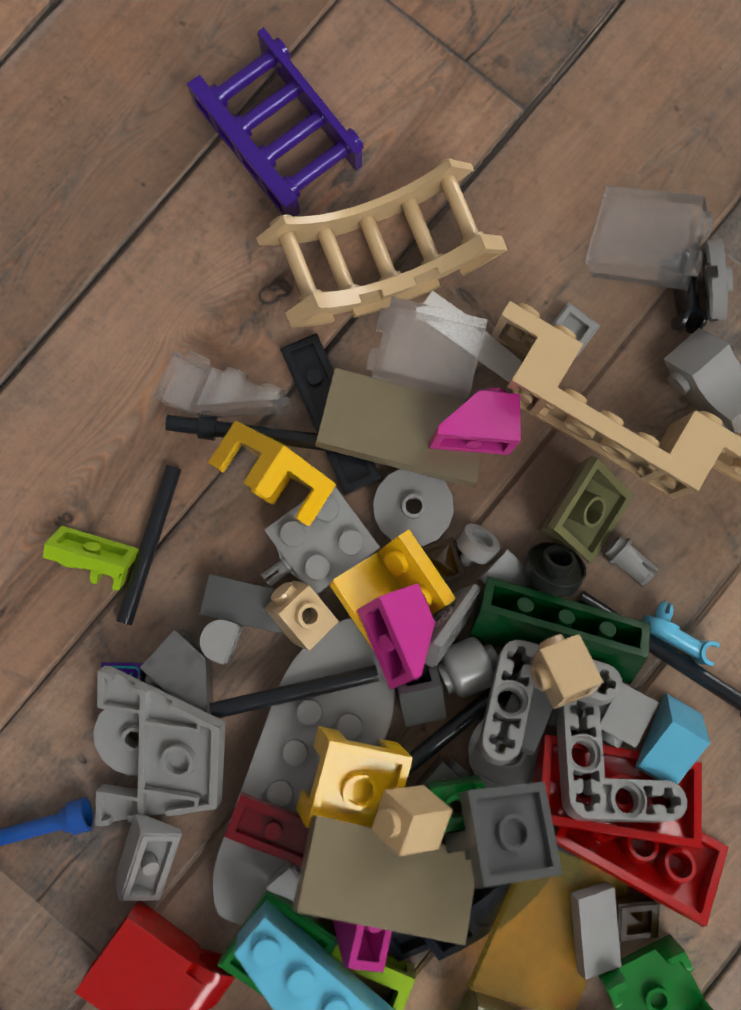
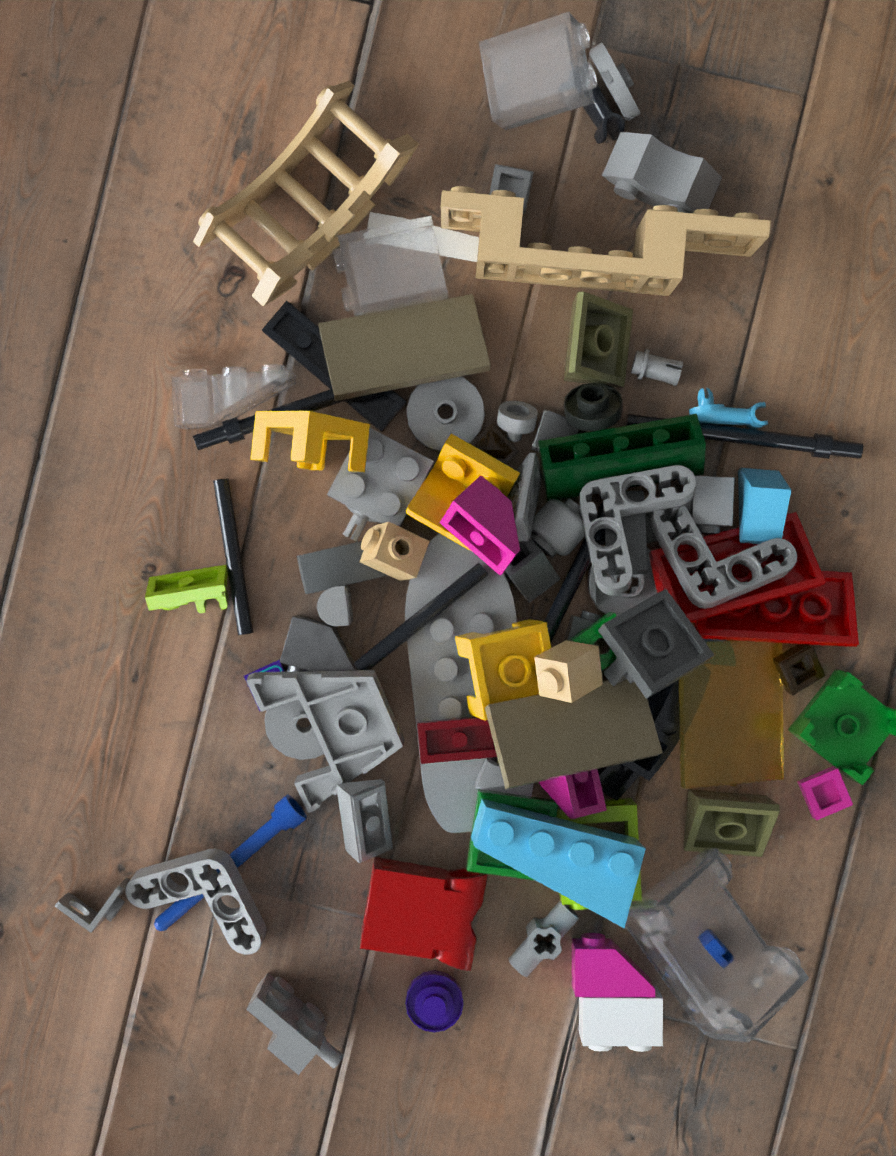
camera: 20 degrees left, 5 degrees up
(261, 160) = (125, 151): dark purple fence -> none
(482, 424) = (470, 311): dark pink slope -> none
(565, 670) = (639, 487): tan brick -> none
(595, 930) = (769, 693): light grey tile -> none

